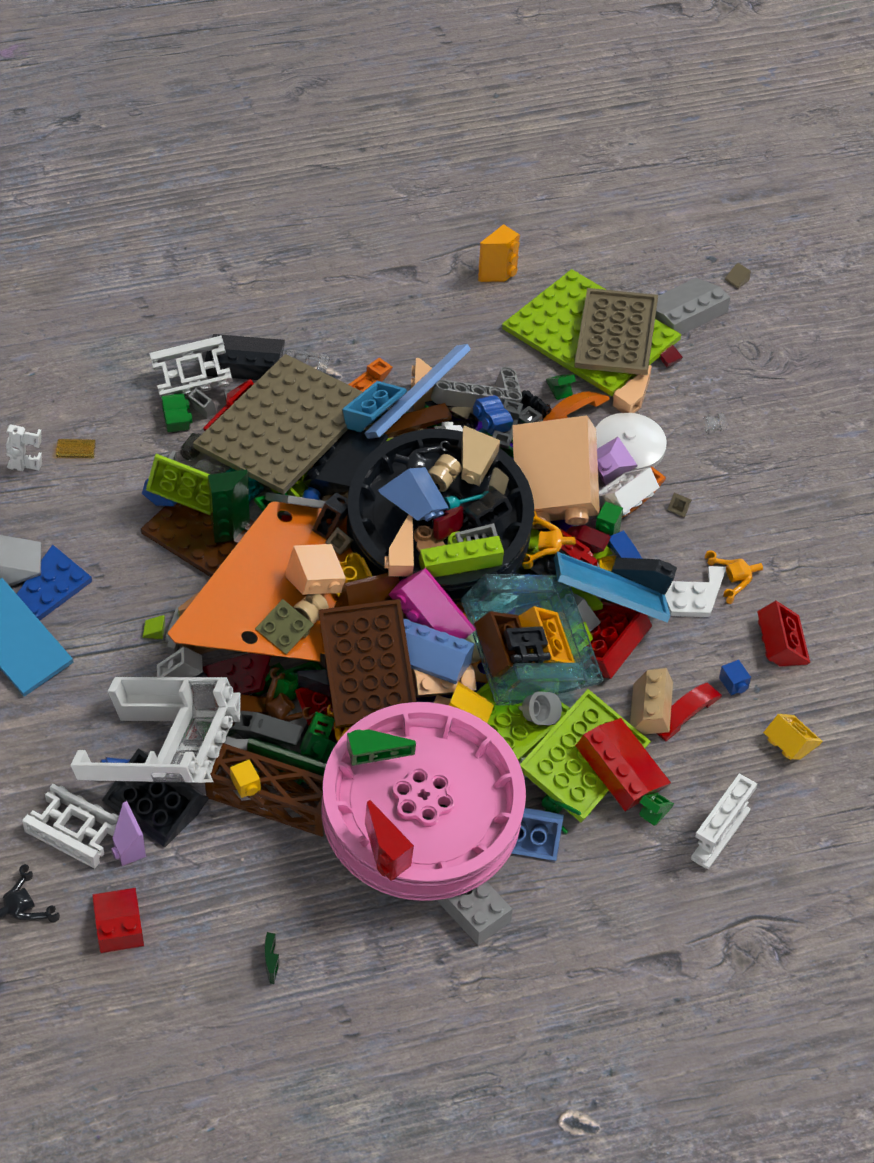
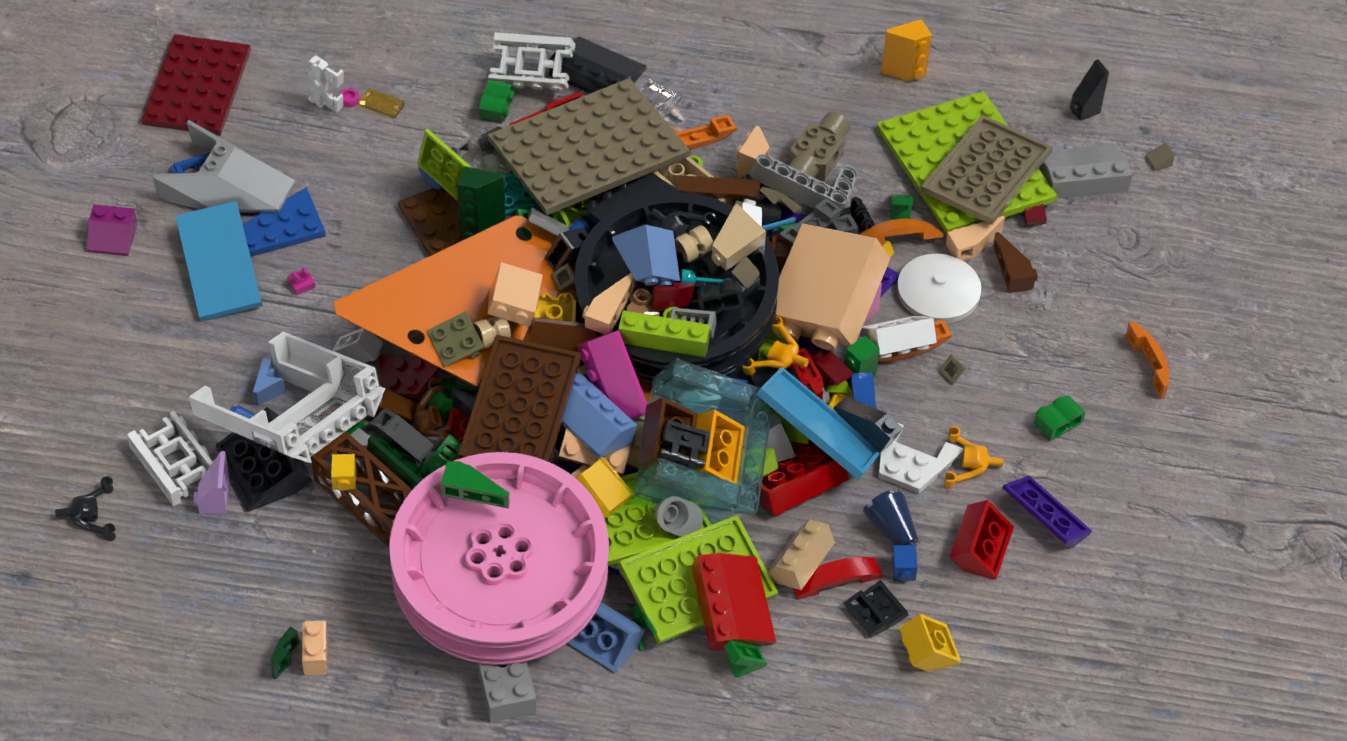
camera: 25 degrees right, 0 degrees up
(47, 453) = (350, 97): none -> dark pink tile
(95, 628) = (301, 281): none -> dark pink tile
(118, 920) = (163, 561): red slope -> none
(120, 730) = (267, 385): none -> medium blue slope
(202, 403) = (523, 94): light grey piece -> none
(296, 942) = (314, 648): none -> light nougat brick
(371, 405) = (679, 156): dark azure slope -> none
(389, 846) = (425, 588): red slope -> none
(417, 391) = (735, 158): light blue tile -> none
(474, 364) = (820, 146): none -> dark tan brick
(492, 414) = (797, 206): blue brick -> none
(614, 460) = (906, 299): lavender slope -> none
(660, 240) = (1090, 92): none -> black slope
(679, 404) = (1014, 265): none -> reddish brown slope
(708, 645) = (892, 517): none -> dark blue cone
(723, 821) = (798, 697): white fence -> none
(733, 724) = (876, 609): none -> black slope
(784, 513) = (1059, 417): none -> green brick
(809, 427) = (1141, 339): none -> orange slope
(818, 591) = (1048, 510): none -> dark purple slope

